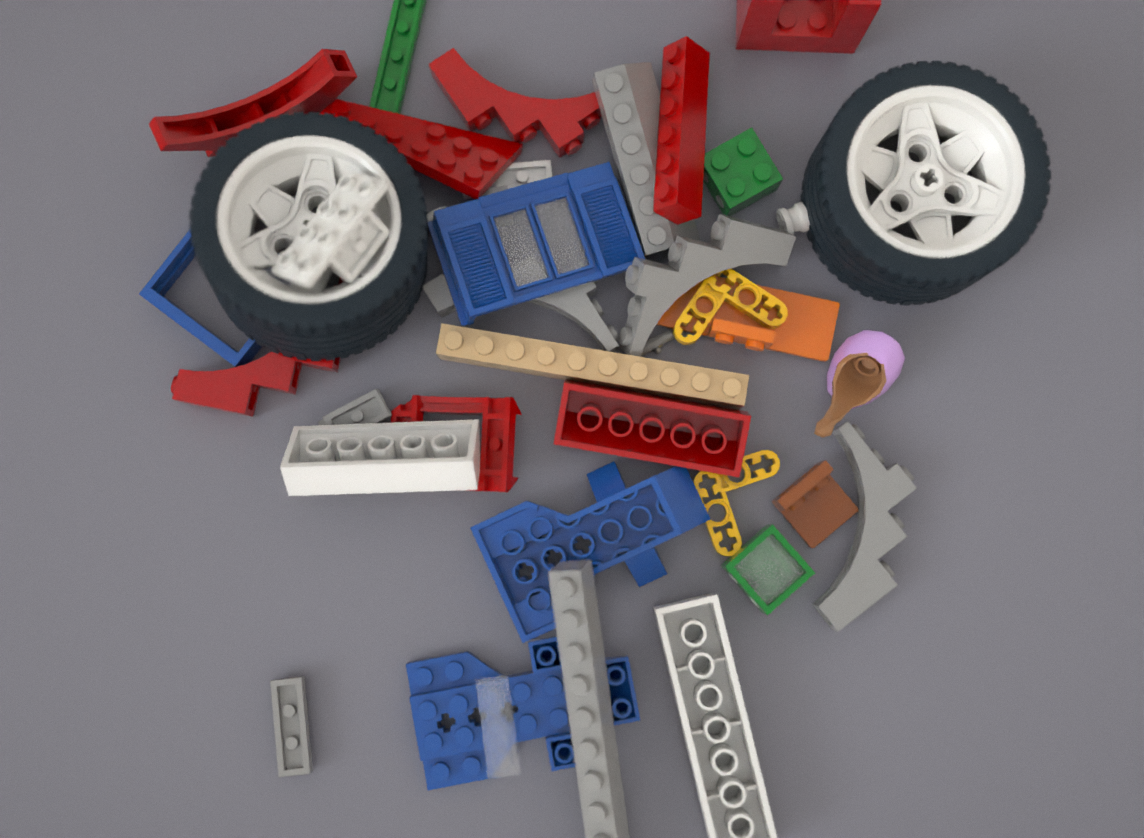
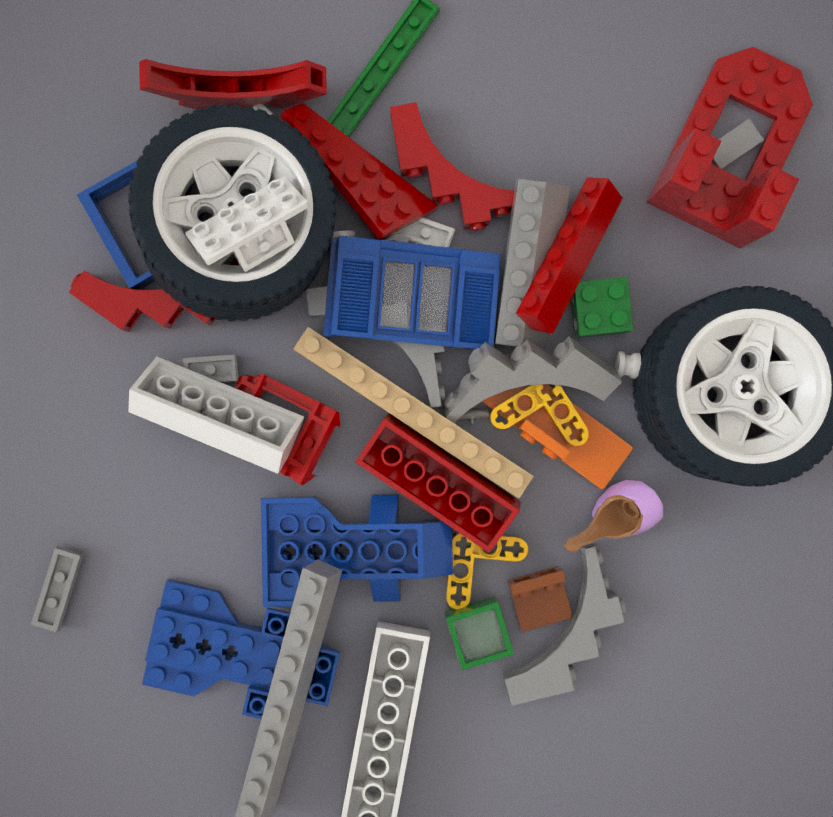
camera: 15 degrees right, 5 degrees up
(498, 726) = (215, 662): clear plate -> none

